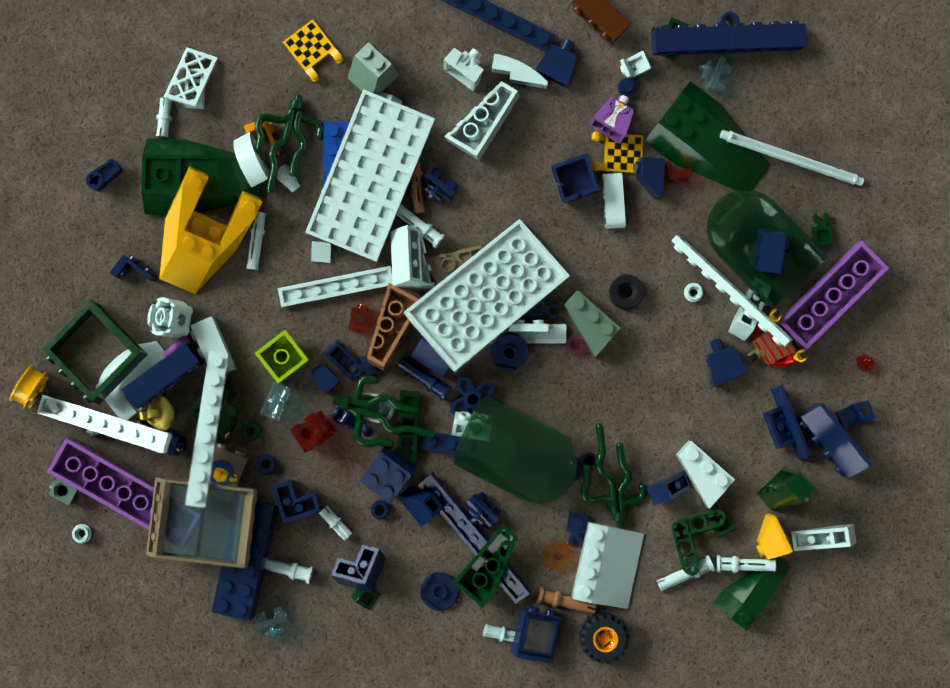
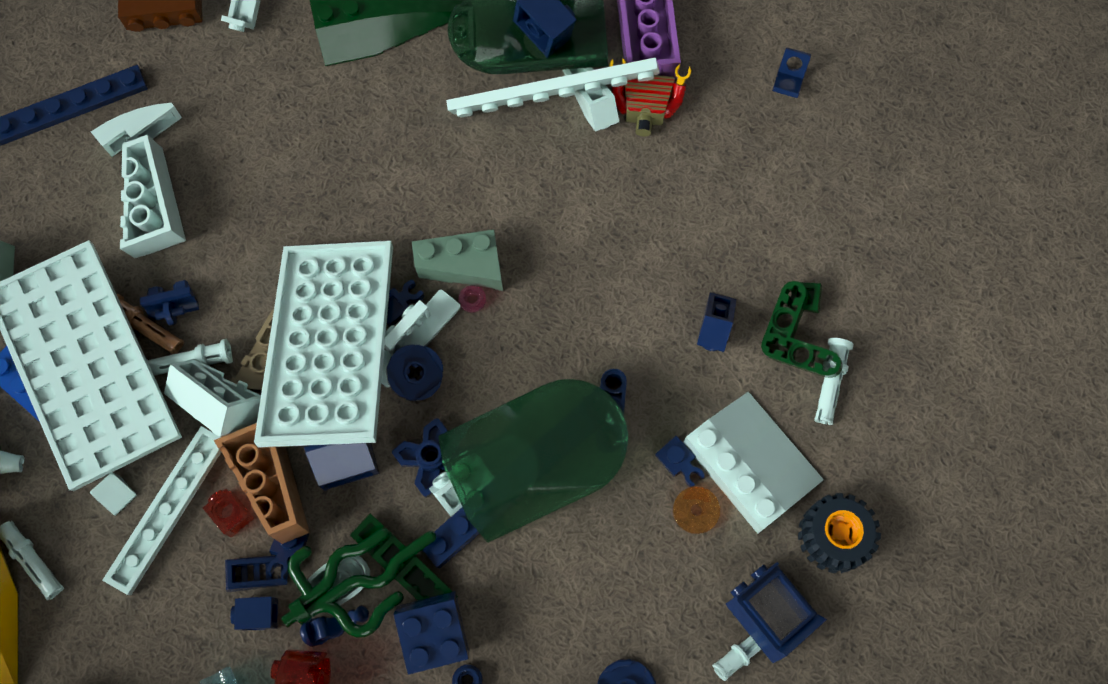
camera: 45 degrees left, 15 degrees down
(282, 357) = (182, 642): lime slope -> none
(420, 504) = (501, 622): dark blue slope -> none
(432, 383) = (373, 491): dark blue pin -> none
(464, 67) = (73, 174): light aqua brick -> none
(472, 534) = (595, 591): dark blue plate -> none
(481, 511) = (570, 554): dark blue hips -> none
(485, 570) = (645, 609): dark green wedge -> none
(556, 600) = (749, 552): medium nougat pin -> none
(558, 63) = (167, 82): dark blue torso -> none
(577, 177) = (295, 151): dark blue piece -> none
(613, 118) = (271, 72): medium lavender torso -> none
(614, 200) = (356, 136): light aqua beam -> none
(616, 498) = (681, 387): dark green plant -> none
(619, 156) = (315, 96): yellow flag -> none
(626, 281) = (458, 185): black tyre -> none
(627, 87) = (256, 39): dark blue plate -> none
(651, 175) = (364, 81): dark blue slope -> none
(679, 176) = (390, 55): clear red bracket -> none
(698, 288) = (526, 128): light aqua plate -> none
(704, 473) = (730, 270): light aqua wedge -> none
(723, 363) = (625, 160): dark blue torso -> none
(732, 564) = (864, 317): light aqua pin -> none
(750, 594) = (911, 330): dark green wedge -> none
(772, 539) = (864, 252): yellow slope -> none
(784, 424) = (745, 149): dark blue bracket -> none
(786, 489) = (821, 187): dark green wedge -> none
(824, 537) = (904, 204): light aqua slope -> none
(833, 440) = (802, 110): dark blue slope -> none
(865, 363) = (742, 27): clear red plate -> none

